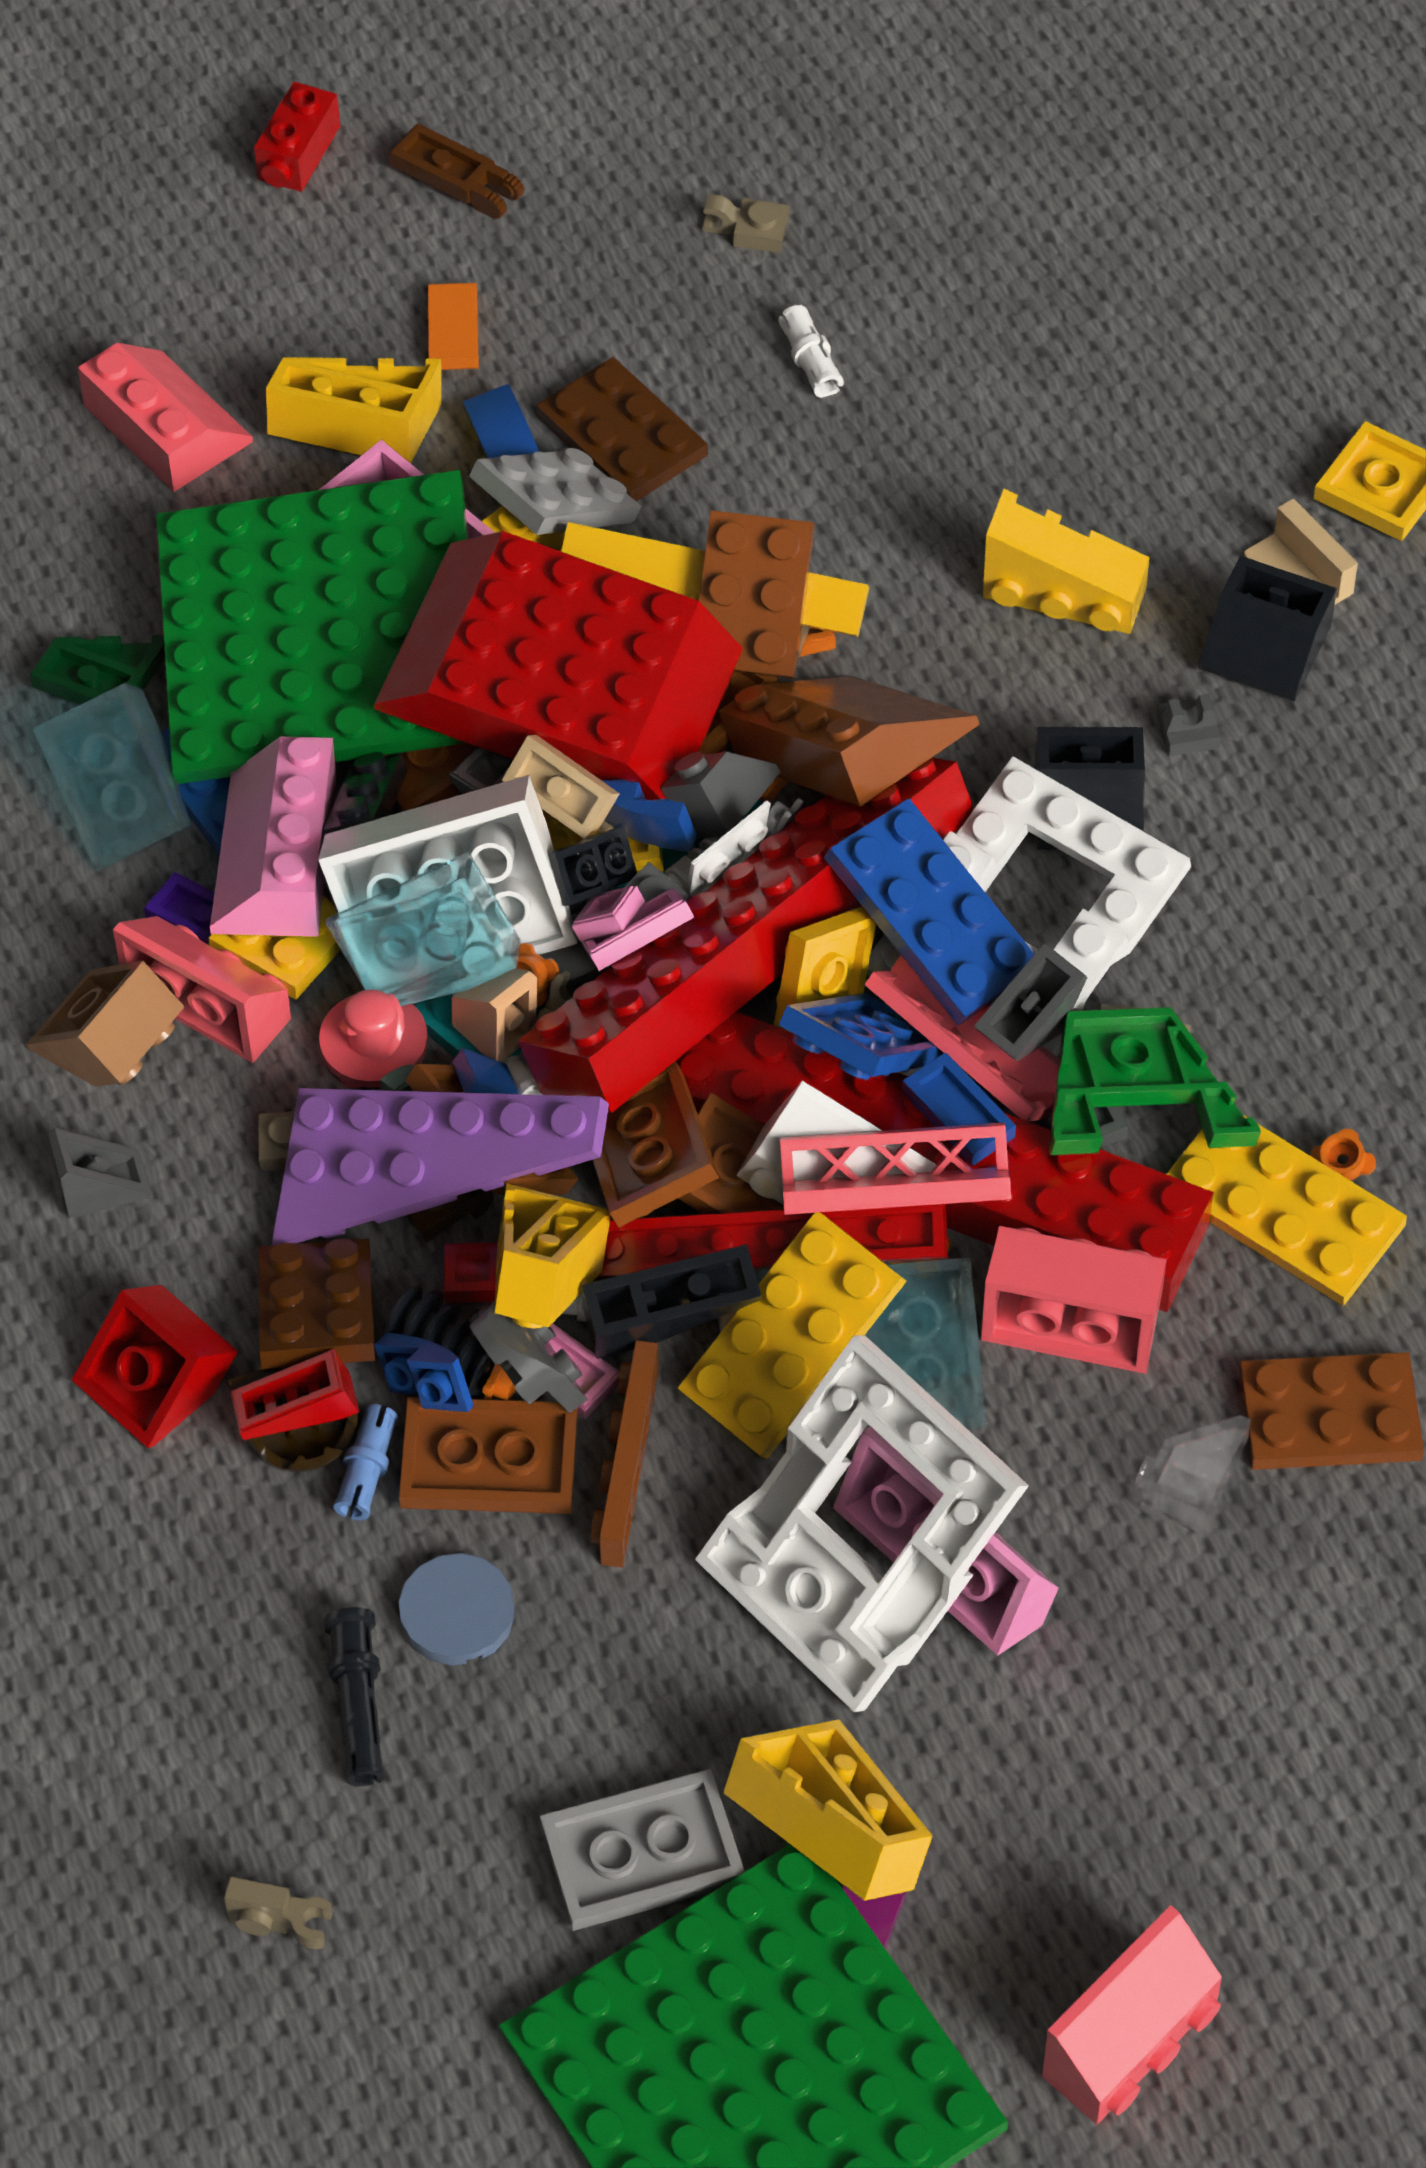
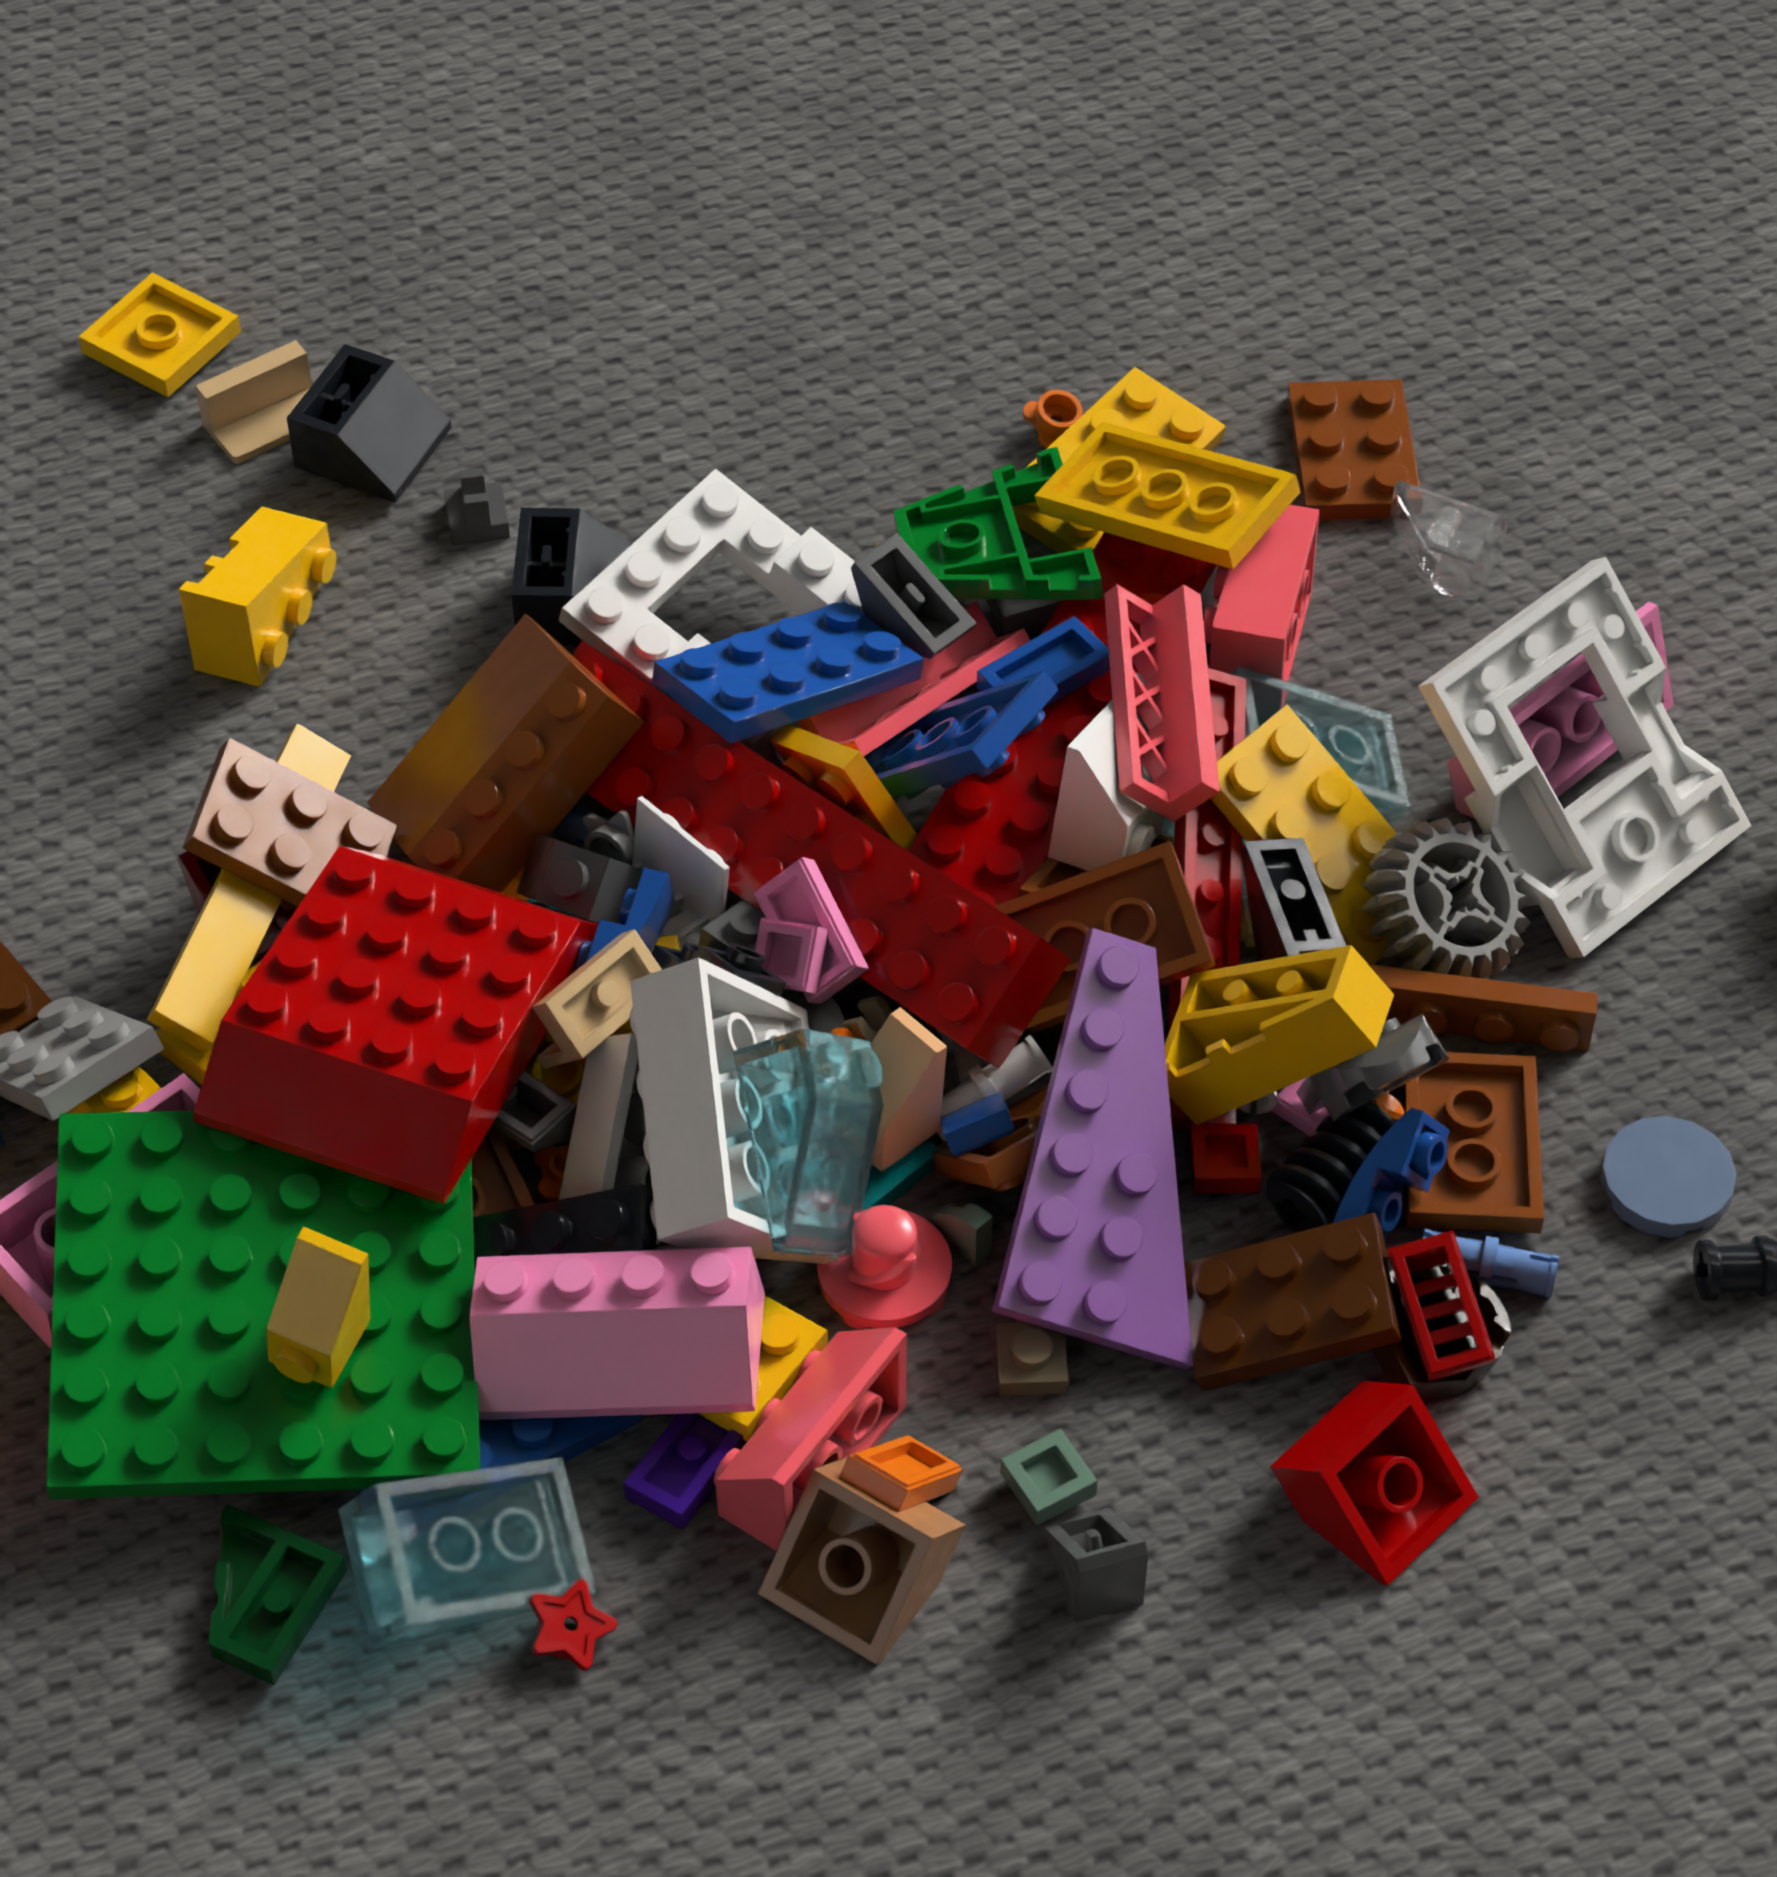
camera: 90 degrees left, 5 degrees down
(73, 856) = (556, 1639): none -> red plate
(163, 1037) = (901, 1473): none -> orange tile
(171, 1146) = (1048, 1477): none -> sand green plate
(265, 633) = (319, 1309): none -> yellow slope
(729, 1408) = (1424, 904): none -> light grey gear
(1162, 1192) = (1168, 494): none -> yellow plate

